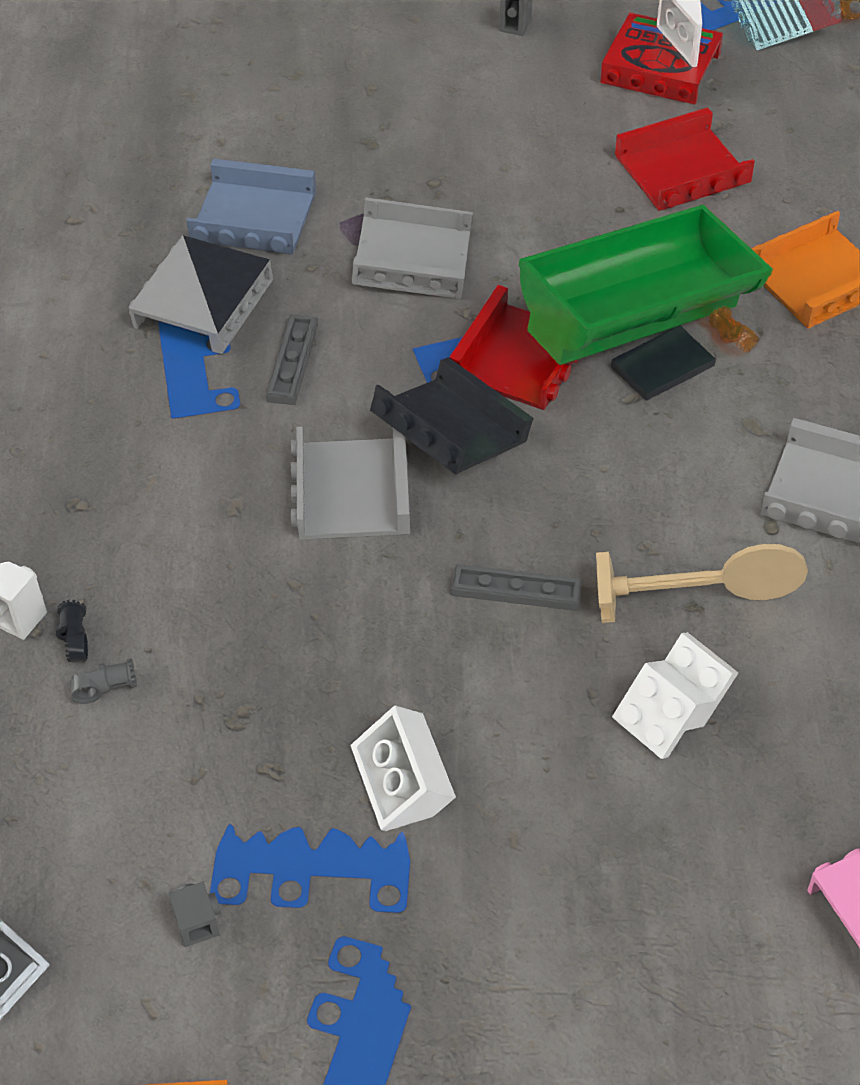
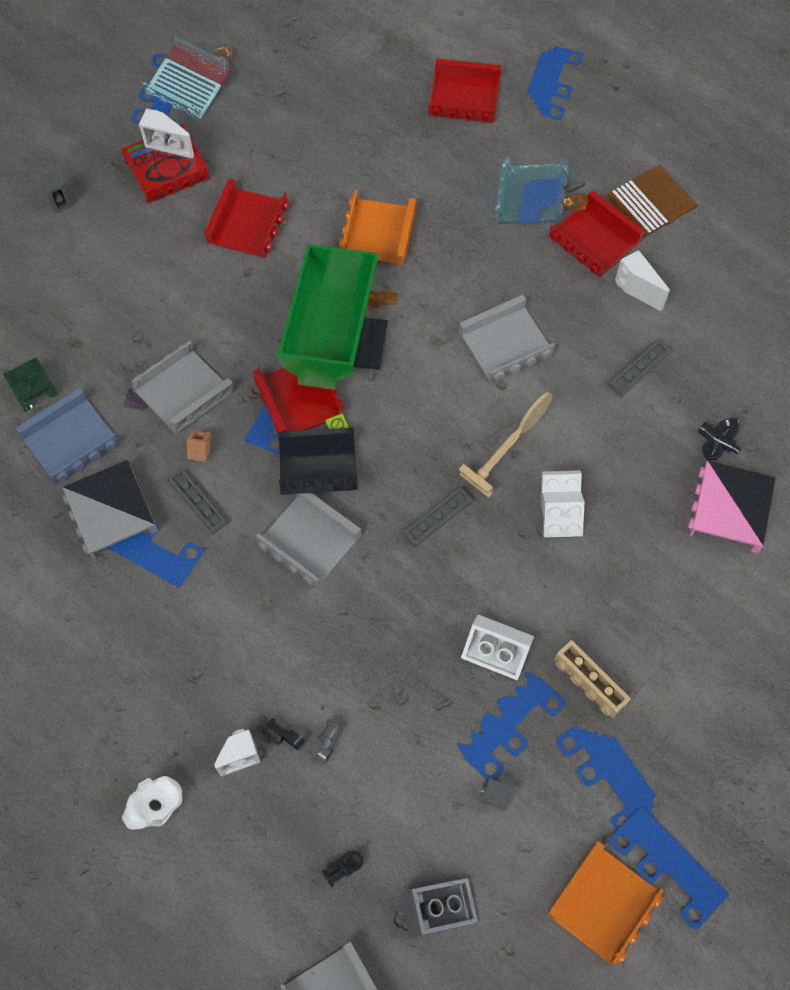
camera: 50 degrees left, 15 degrees up
(278, 133) = (29, 382): none -> clear green panel
(357, 307) = (198, 445): none -> nougat brick
(460, 909) = (592, 679): none -> tan brick
(530, 406) = (336, 422): none -> lime tile

